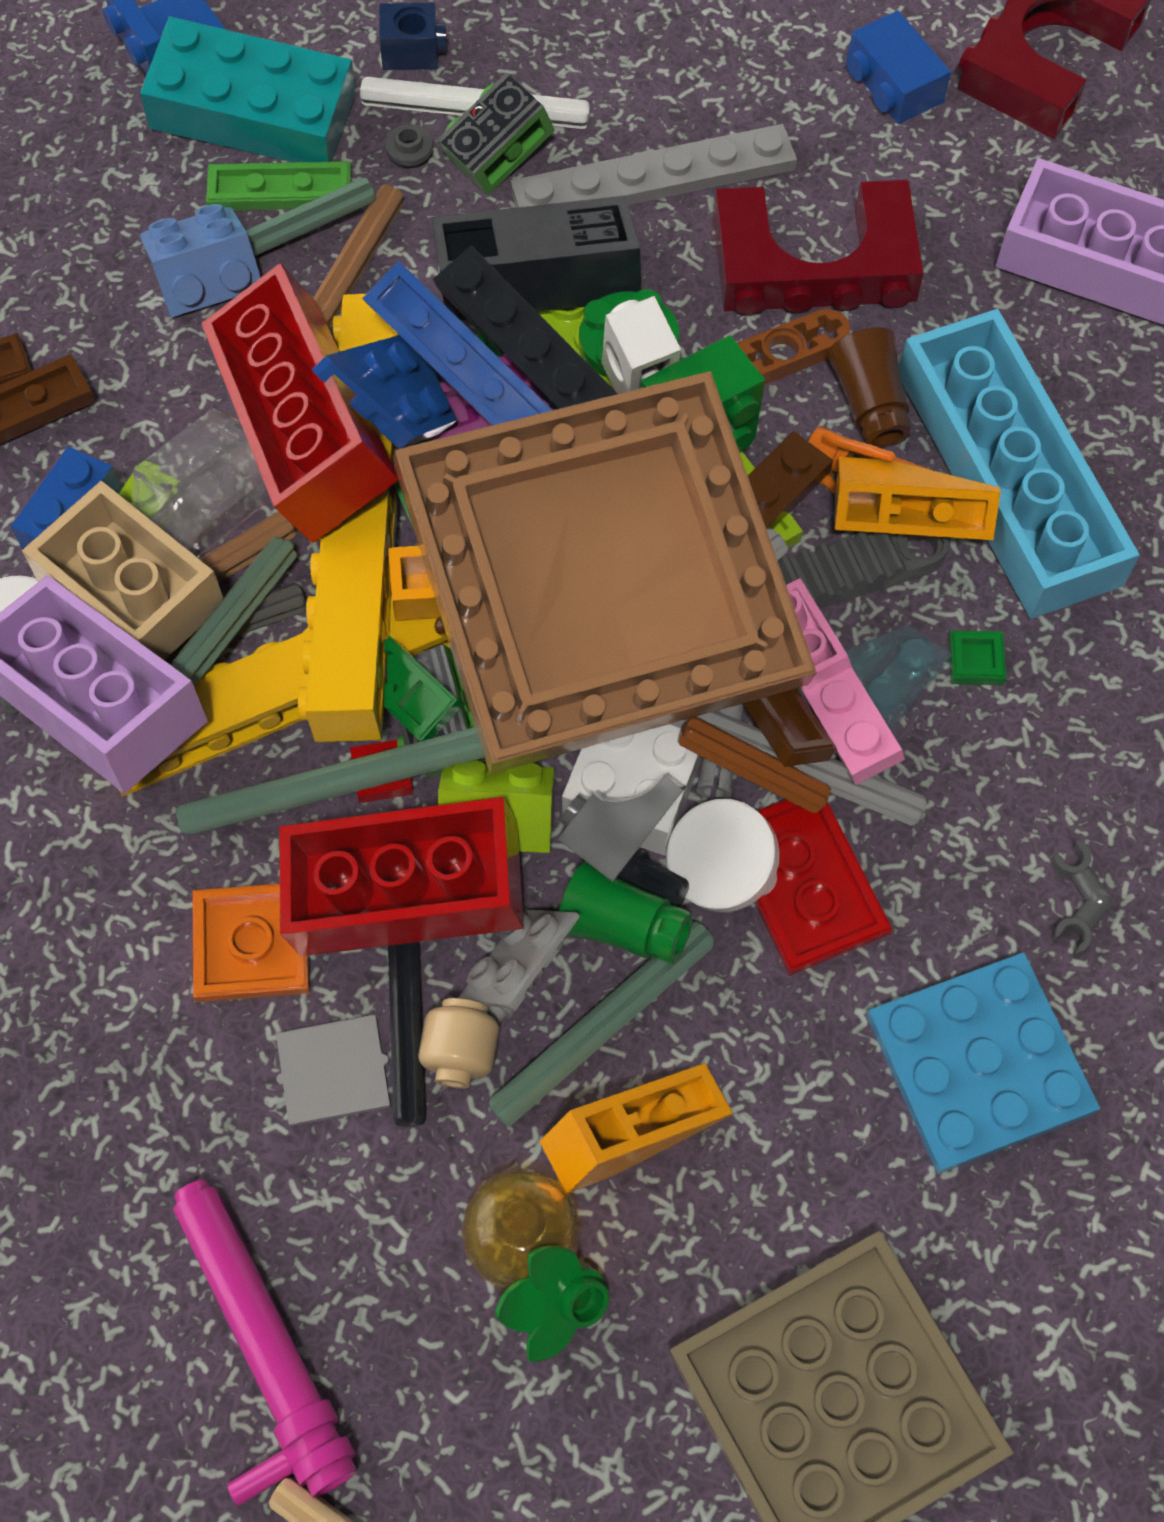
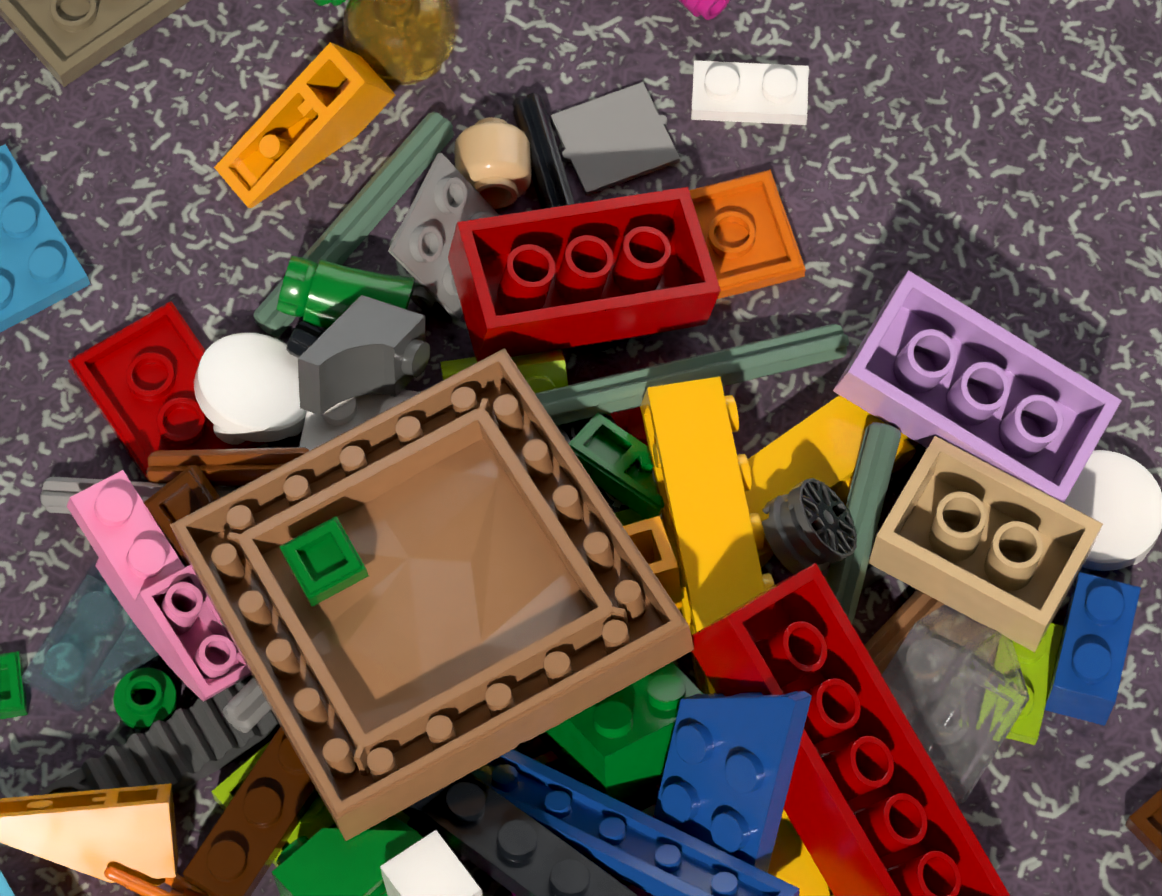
camera: 170 degrees right, 0 degrees up
(187, 1090) = (750, 92): none -> white plate
(266, 603) = (806, 529): none -> dark grey wheel
(687, 595) = (324, 561): none -> green tile
(851, 634) = (143, 716): none -> green plate

